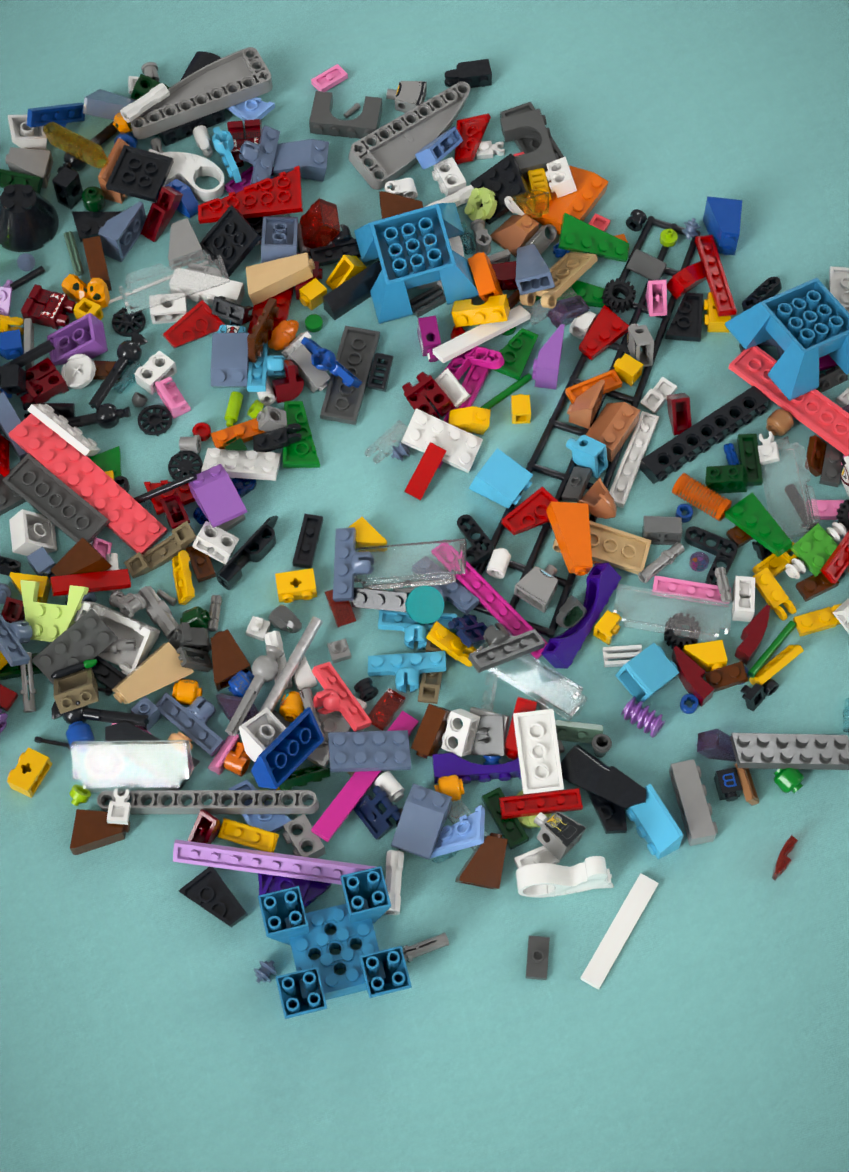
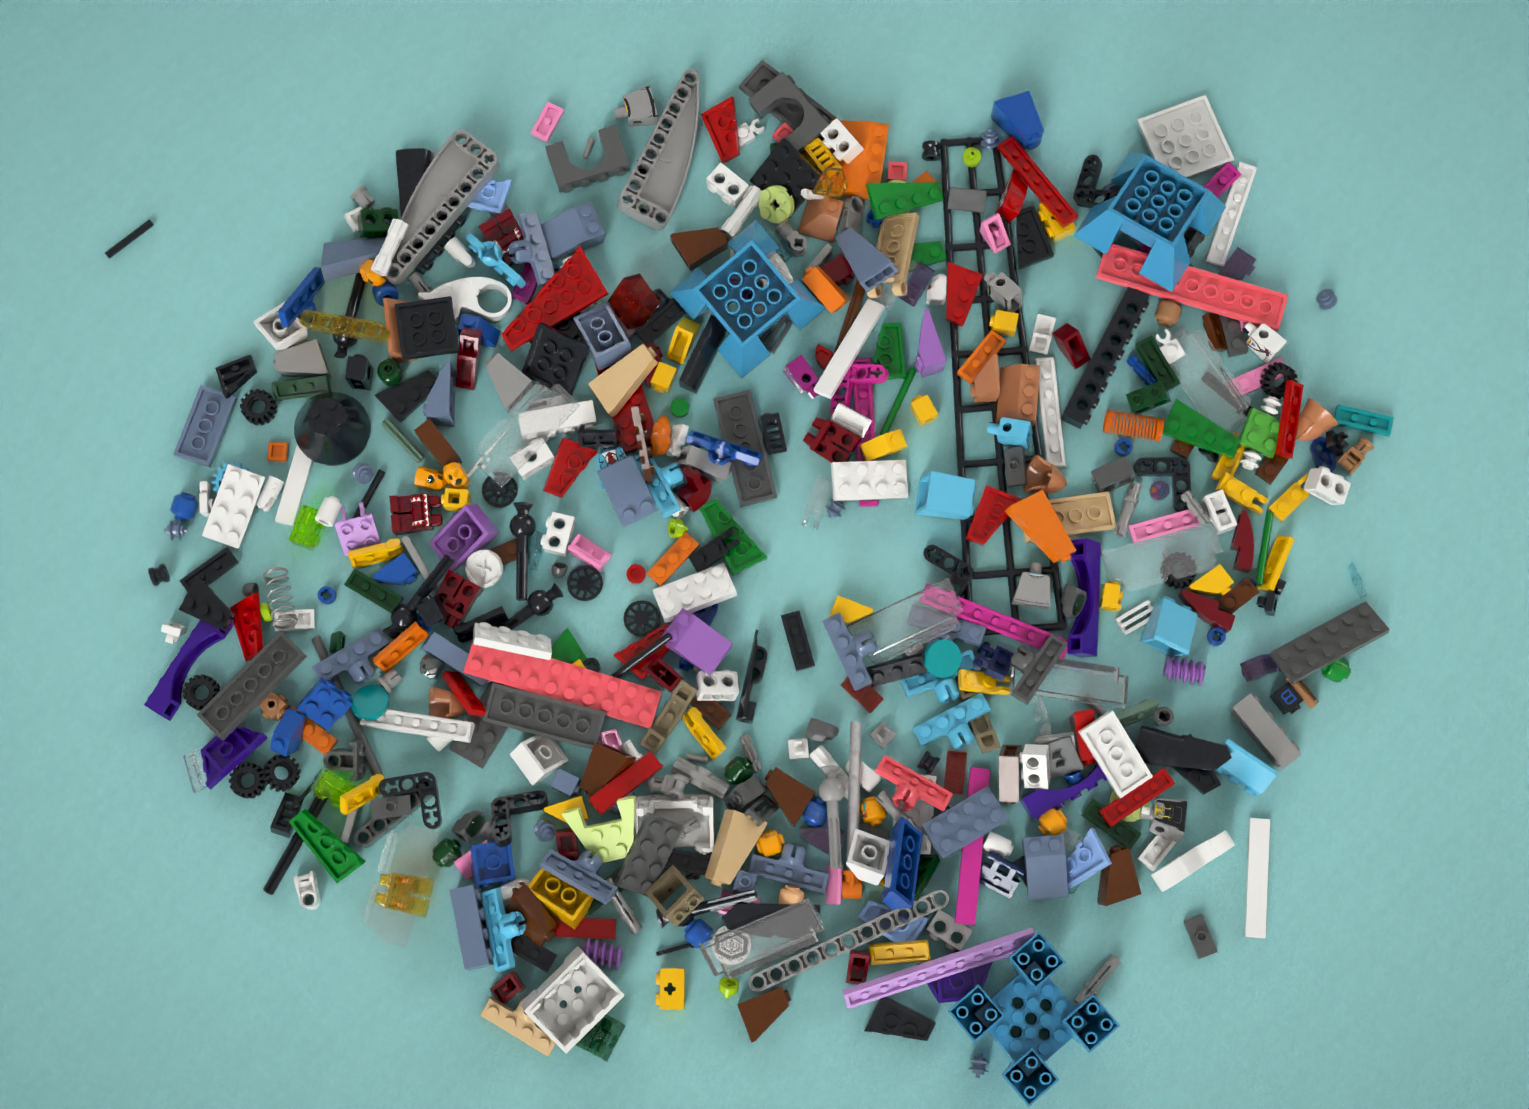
camera: 25 degrees left, 15 degrees up
(74, 668) = (659, 874): black piece -> none
(120, 810) = (777, 988): white plate -> none
(190, 444) = (634, 593): light grey bush -> none
(233, 408) = (653, 536): lime cylinder -> none
(235, 444) = (678, 576): dark green slope -> none
(271, 419) = (699, 533): light grey brick -> none
(288, 581) = (818, 682): yellow brick -> none
(393, 878) = (1042, 924): white axle -> none
(402, 187) = (689, 219): white piece -> none
(425, 471) = (870, 519): red tile -> none
(439, 148) = (704, 160): medium blue slope -> none
(475, 73) = (686, 54): black hinge -> none
(492, 311) = (850, 322): yellow arch -> none
(499, 563) = (985, 581): white brick -> none
(621, 287) = (945, 245): black tyre -> none
(783, 861) = (1364, 750): clear red slope -> none

